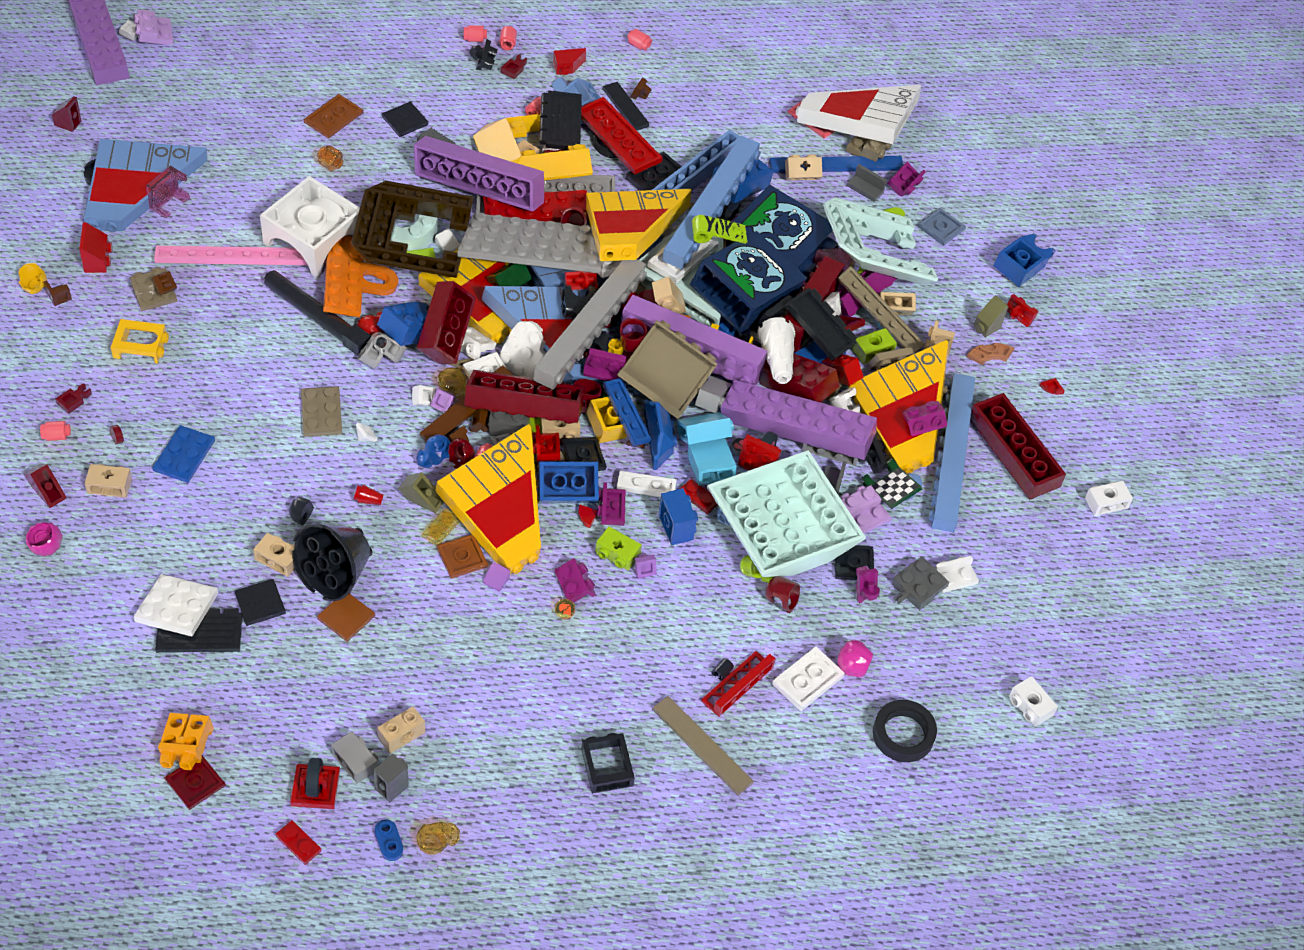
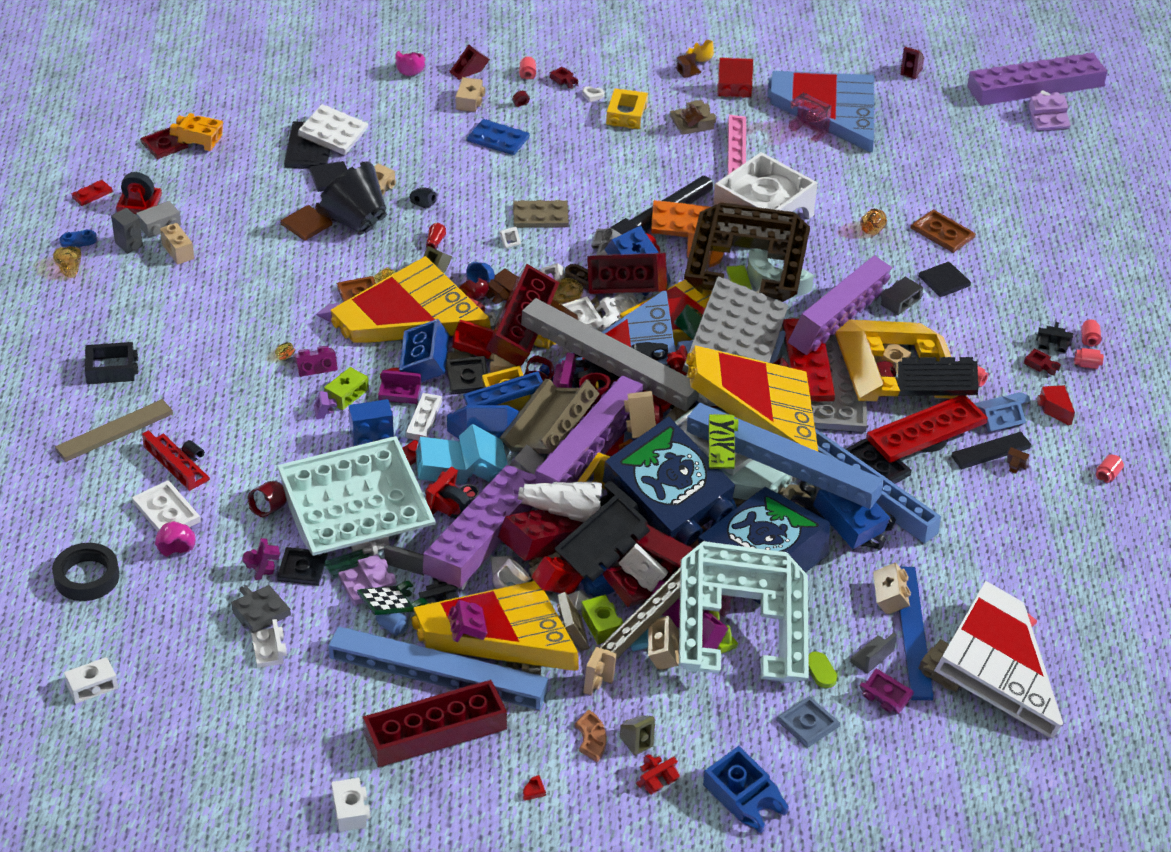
camera: 100 degrees right, 10 degrees down
(102, 374) = (592, 94): none -> white tile
(423, 374) = (578, 273): none -> dark brown plate

